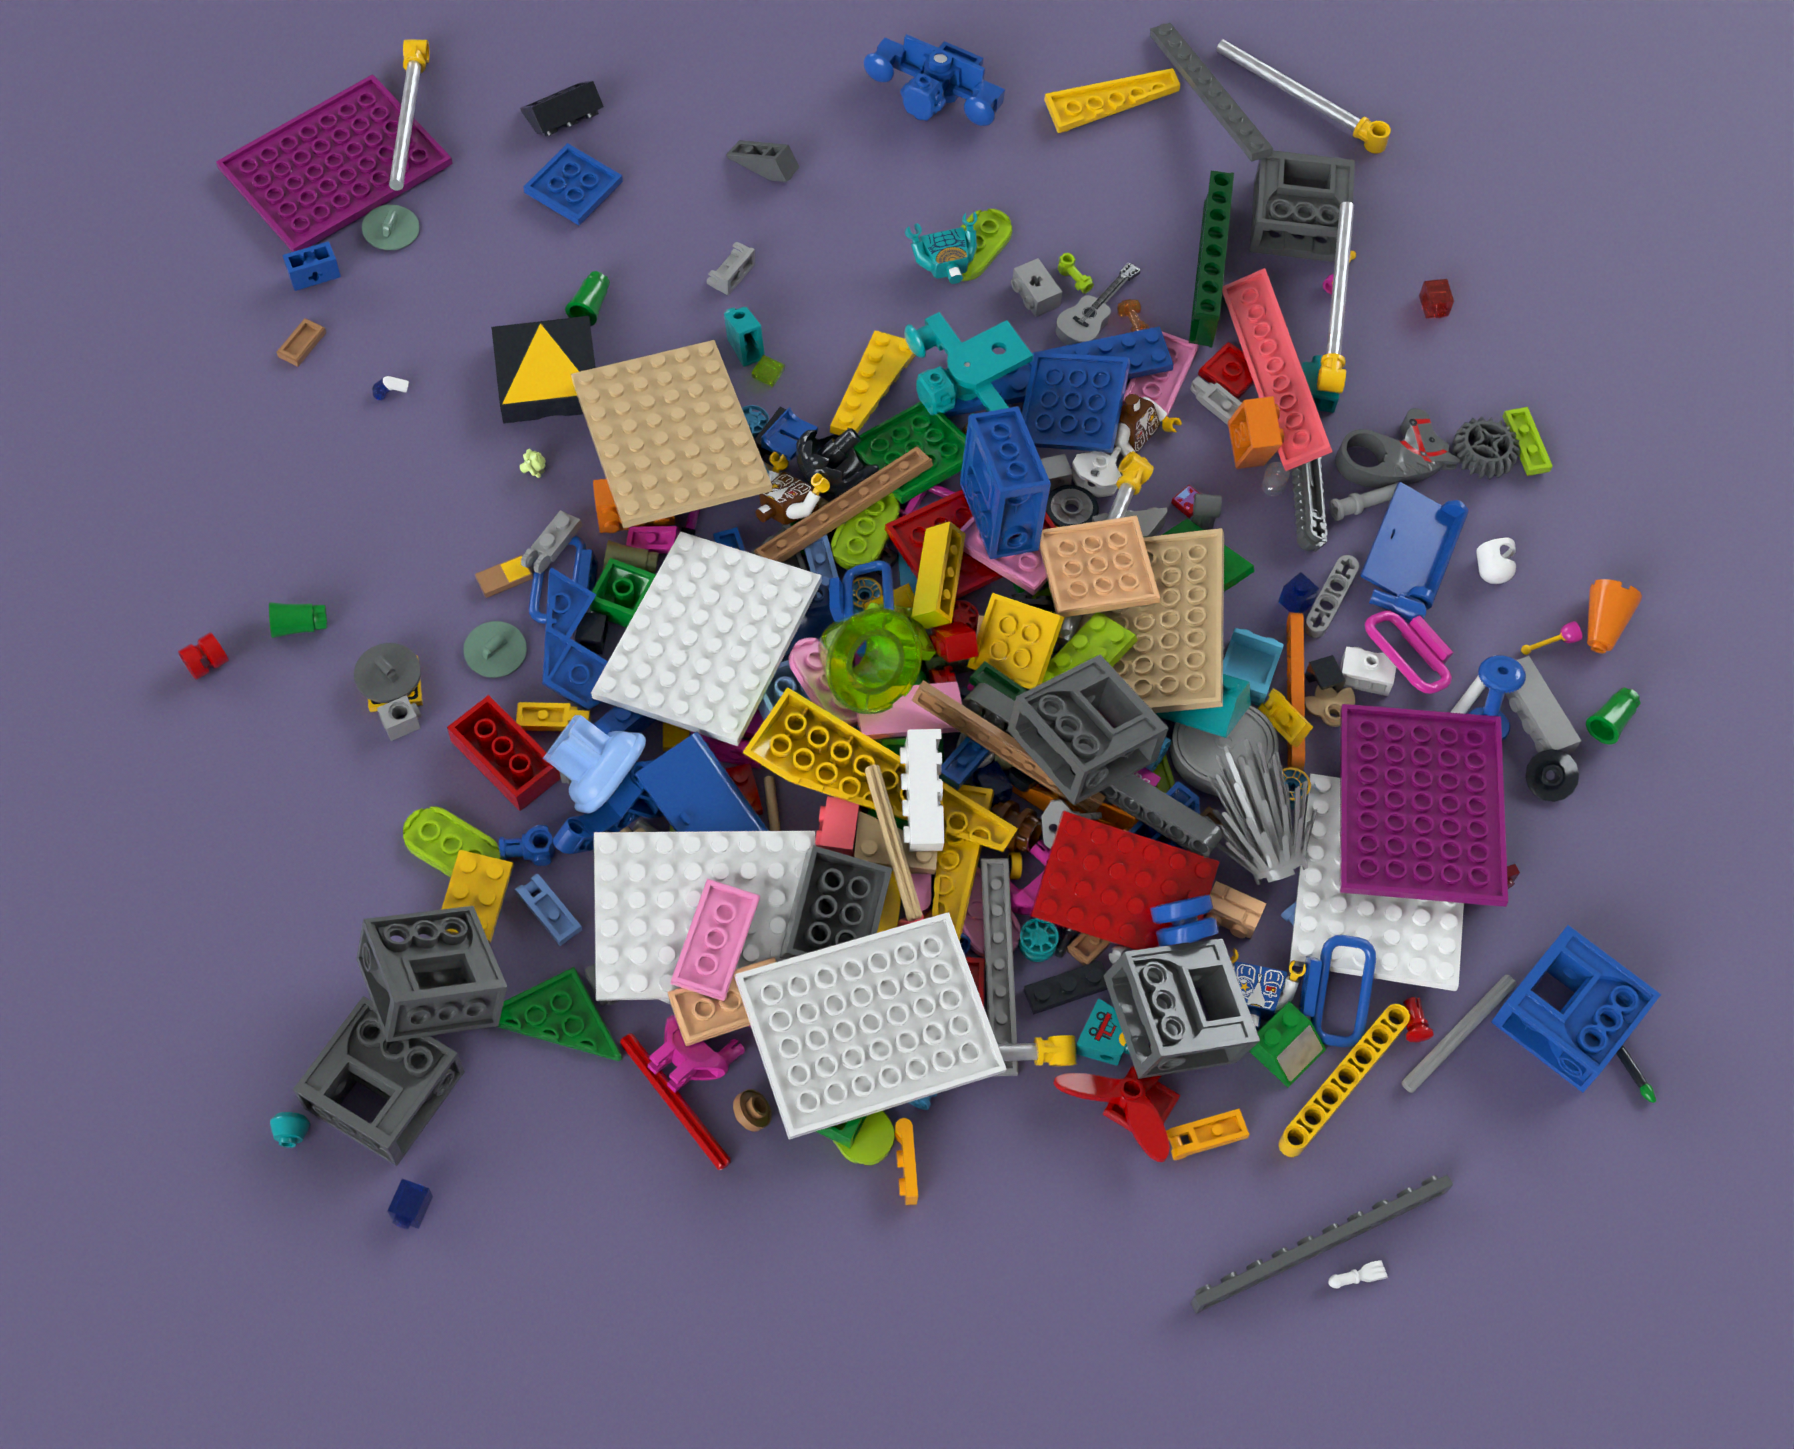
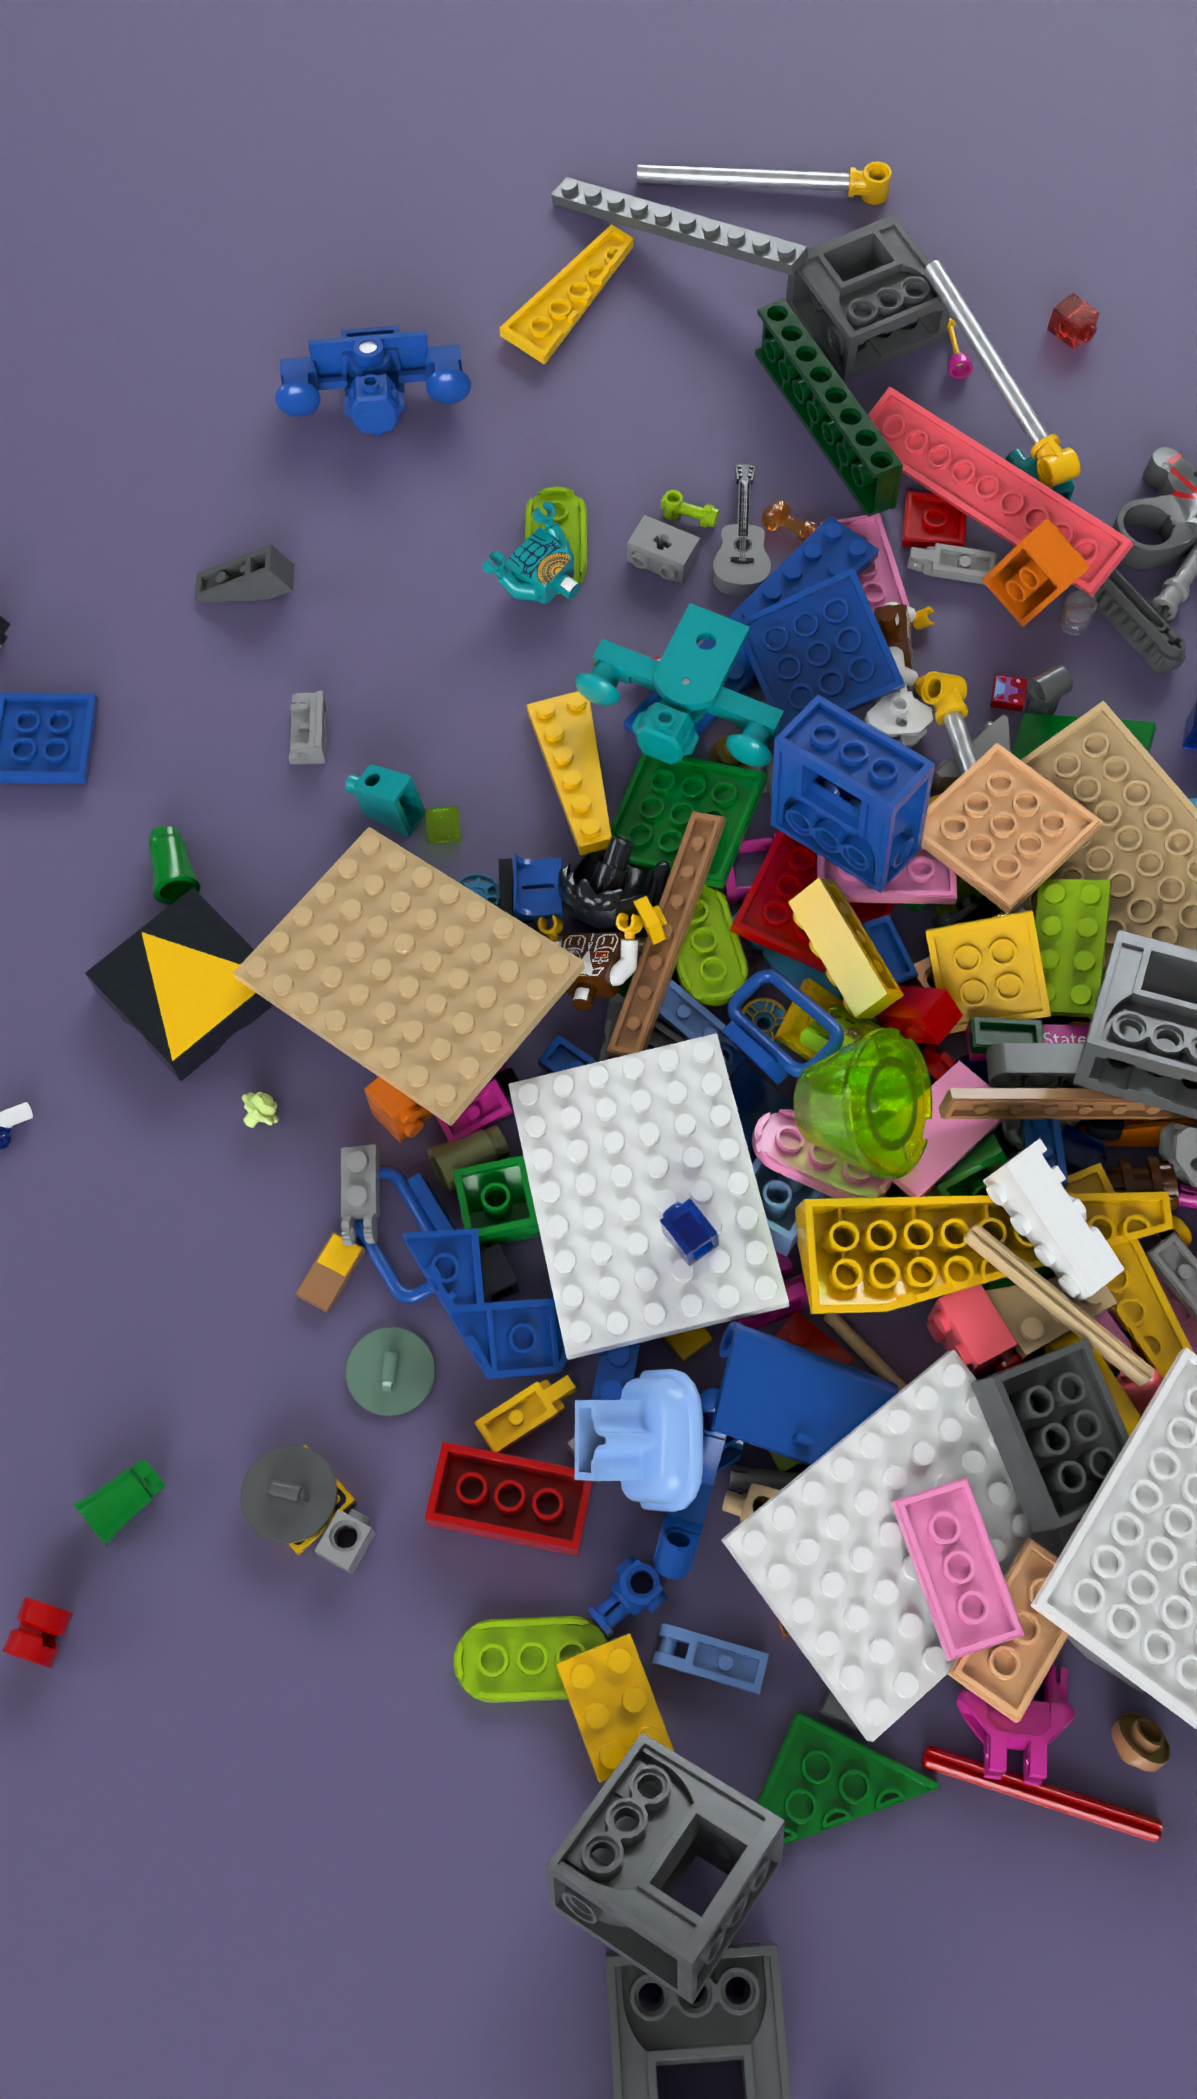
camera: 30 degrees left, 5 degrees up
(708, 665) = (689, 1231): none -> clear blue brick
(836, 490) = (652, 919): none -> yellow plate
(969, 597) = (891, 949): none -> blue tile

